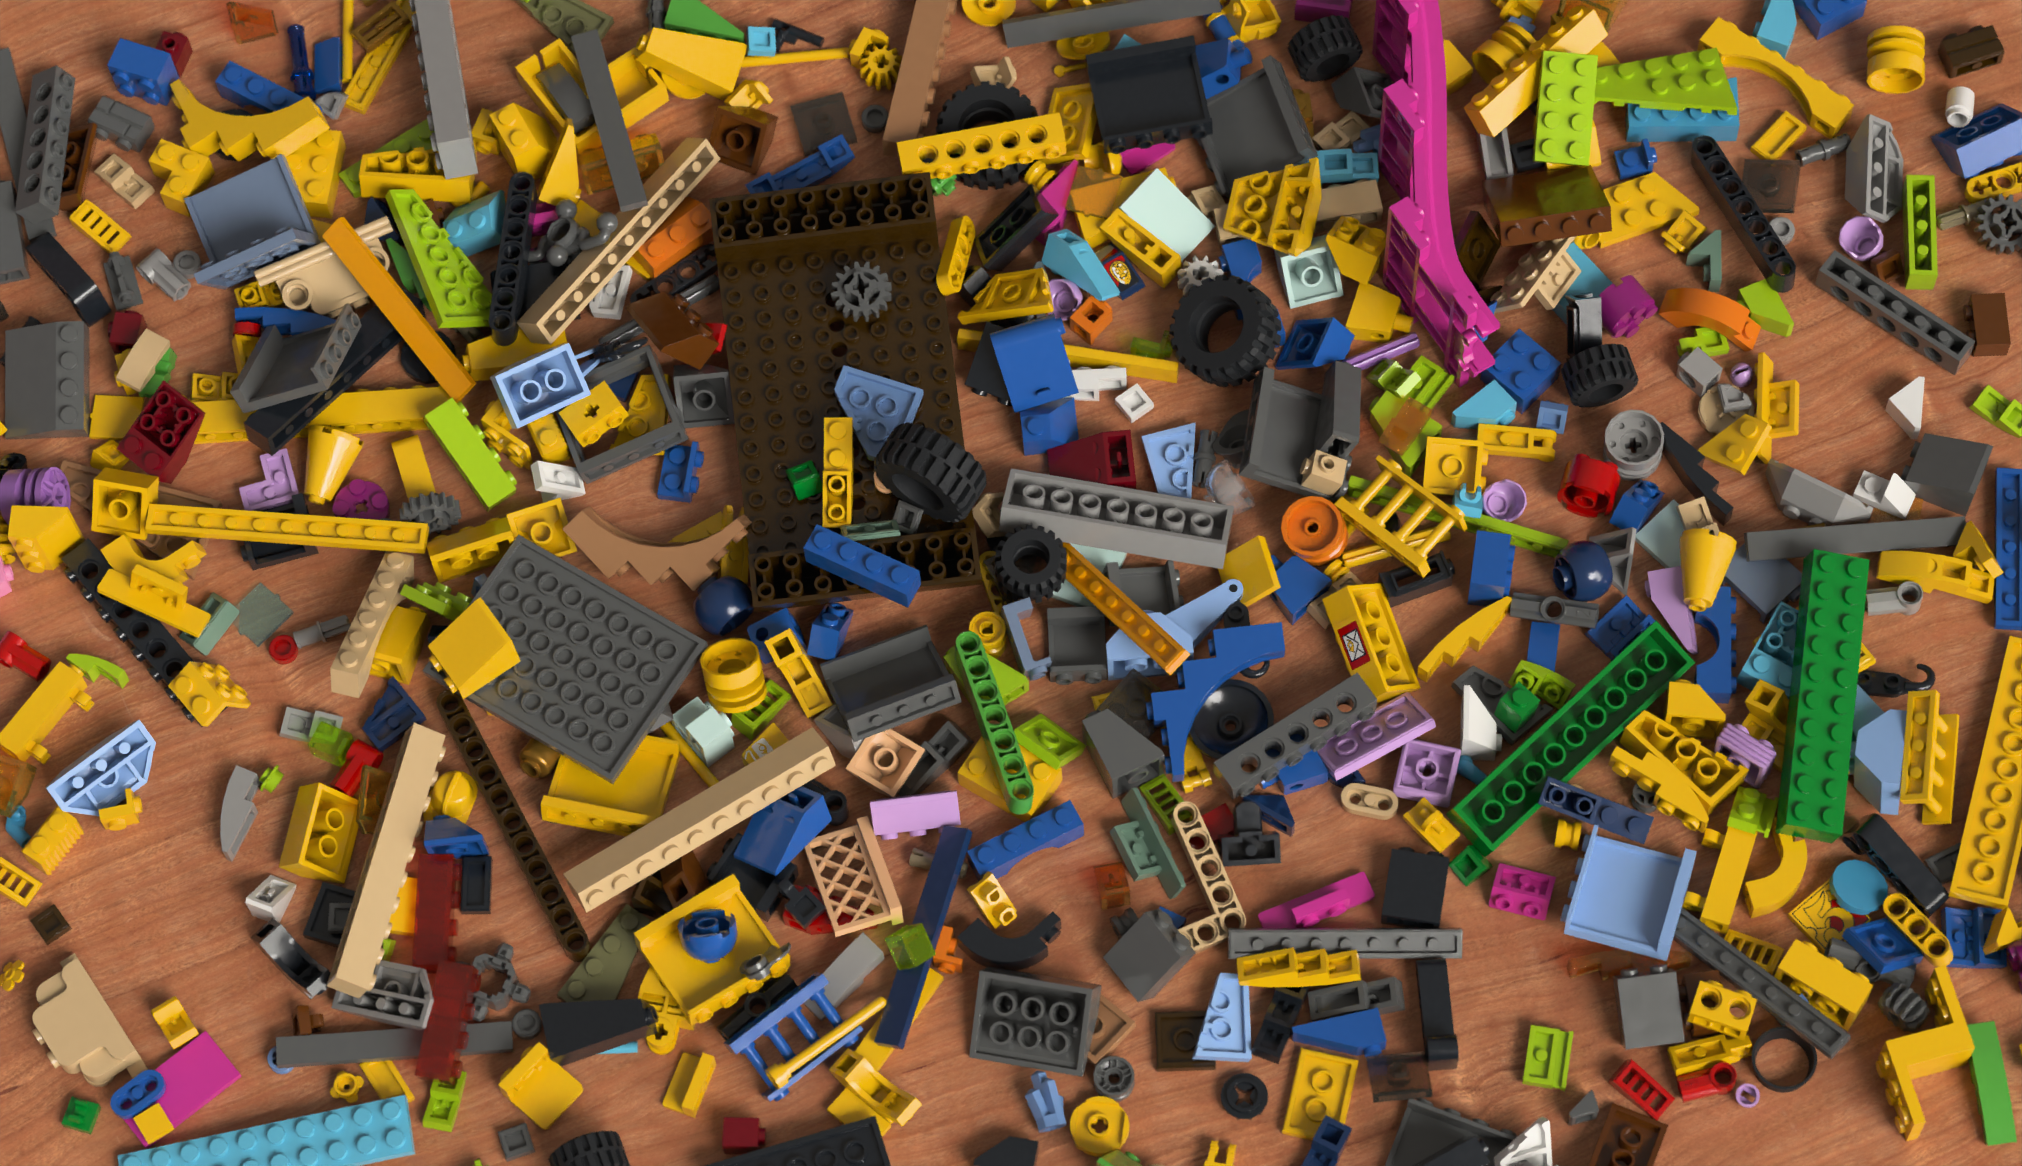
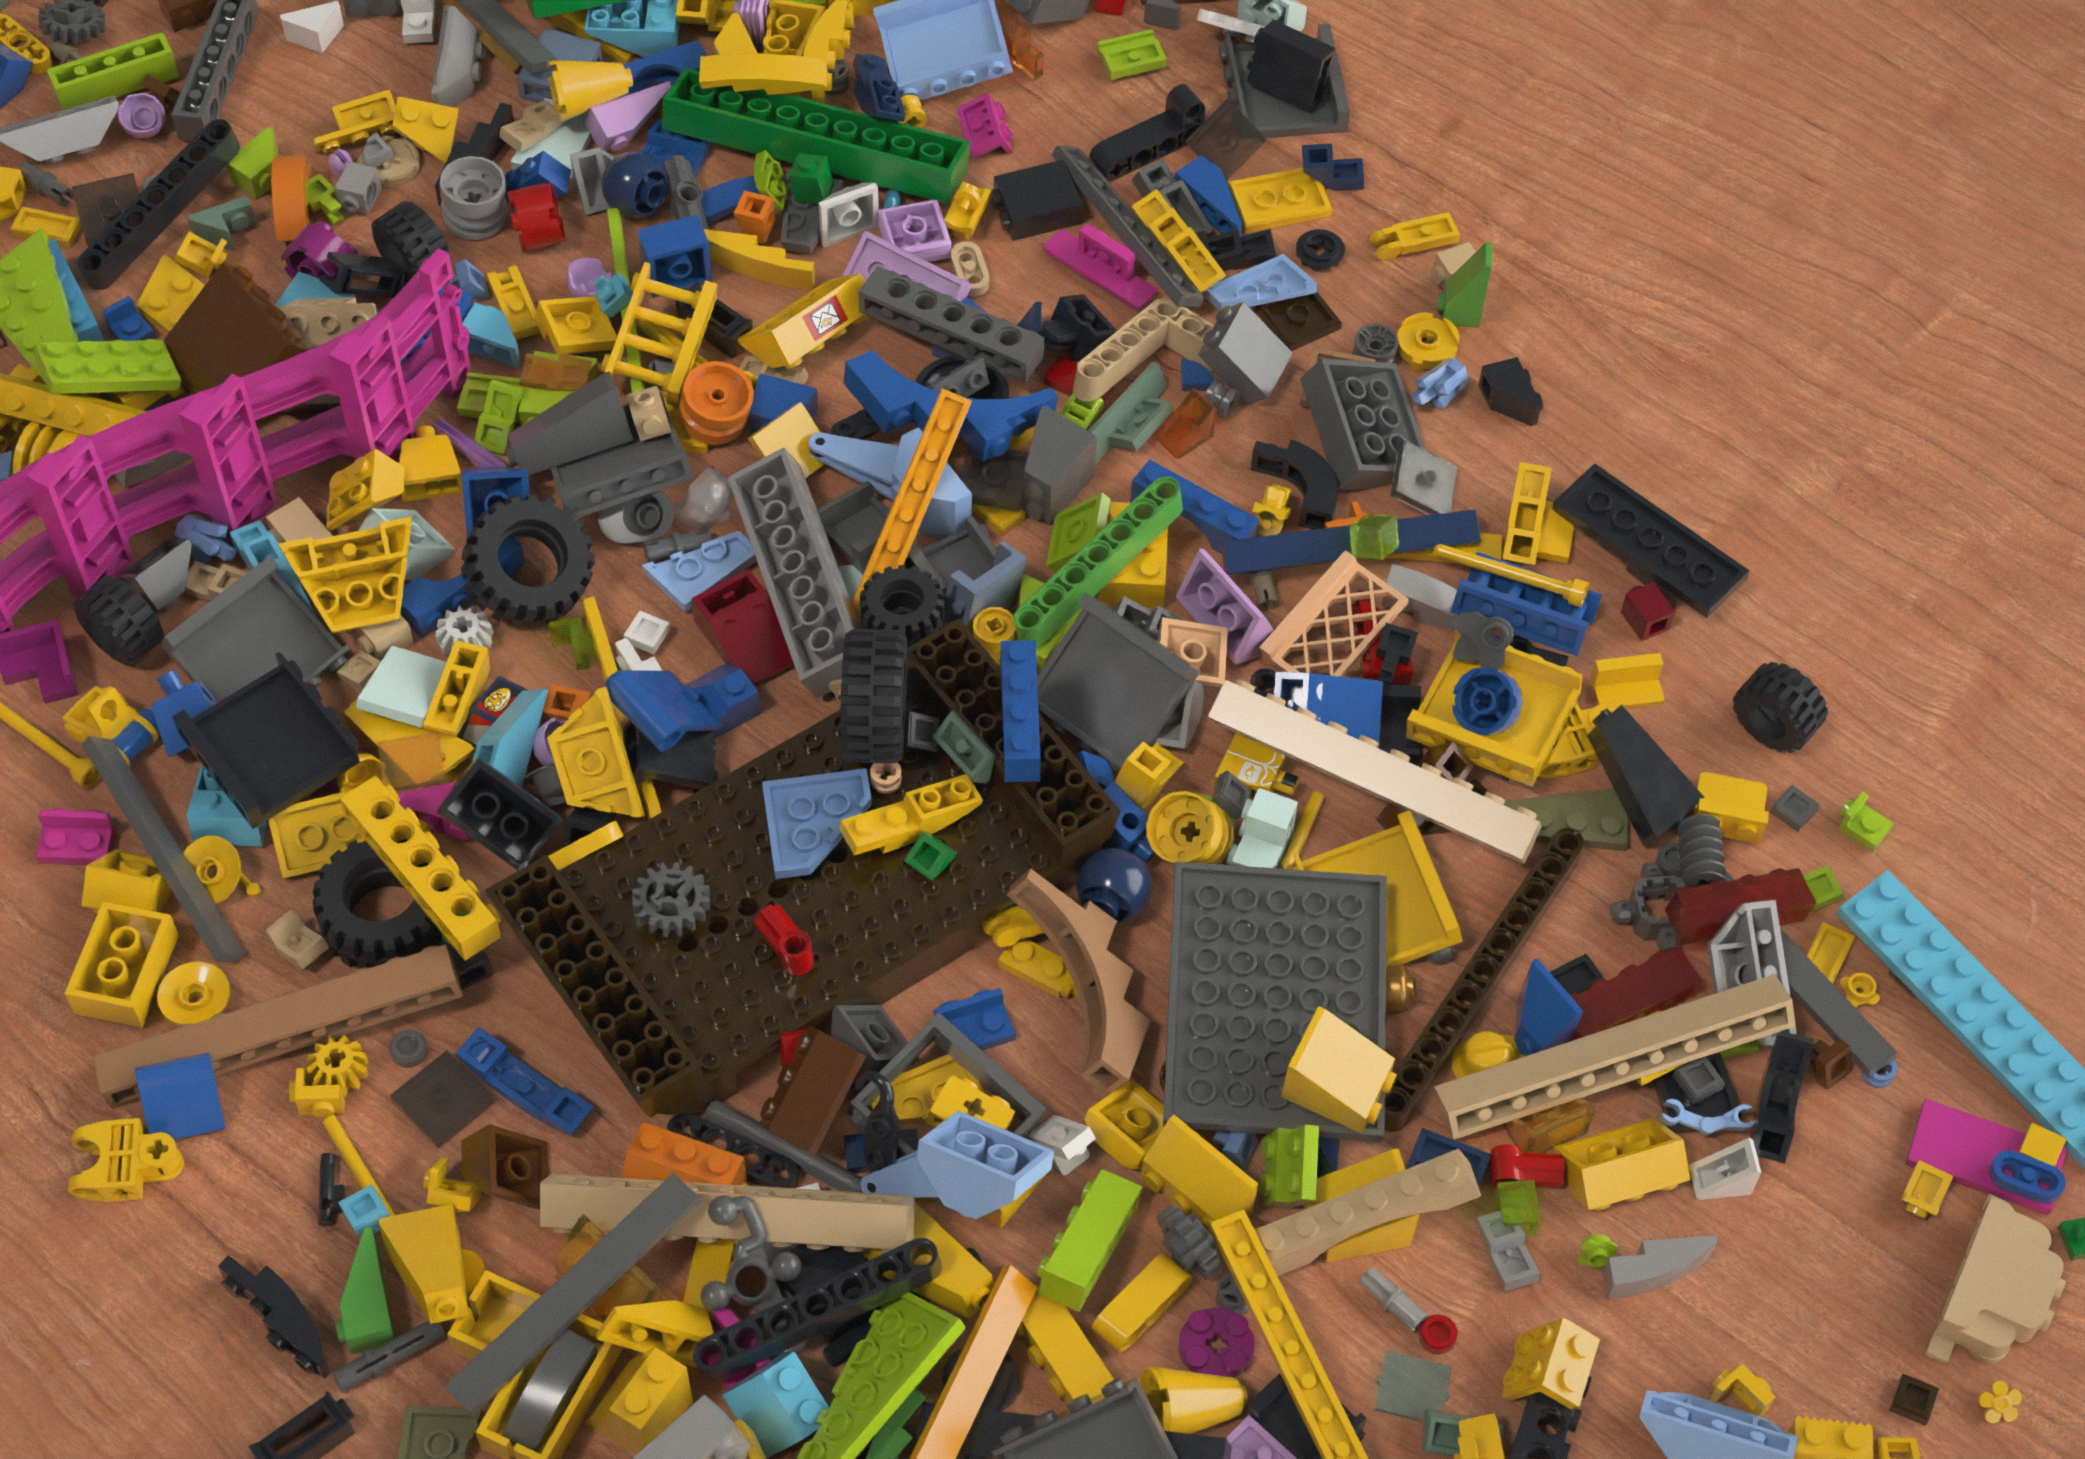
camera: 125 degrees left, 10 degrees down
(308, 901) = (1706, 1125): none -> light blue piece
(497, 434) = (1034, 1231): yellow bracket -> none
(504, 1028) = (1701, 850): none -> dark grey piece
(750, 724) = (1231, 794): none -> dark grey tile
(790, 350) = (784, 939): none -> red piece
(956, 1034) = (1423, 480): none -> clear smoke plate
(1231, 701) = (964, 379): none -> dark grey hinge
(1470, 865) = (981, 174): green slope -> none
(1504, 652) = (755, 215): none -> orange brick
(1640, 707) = (763, 71): none -> yellow slope

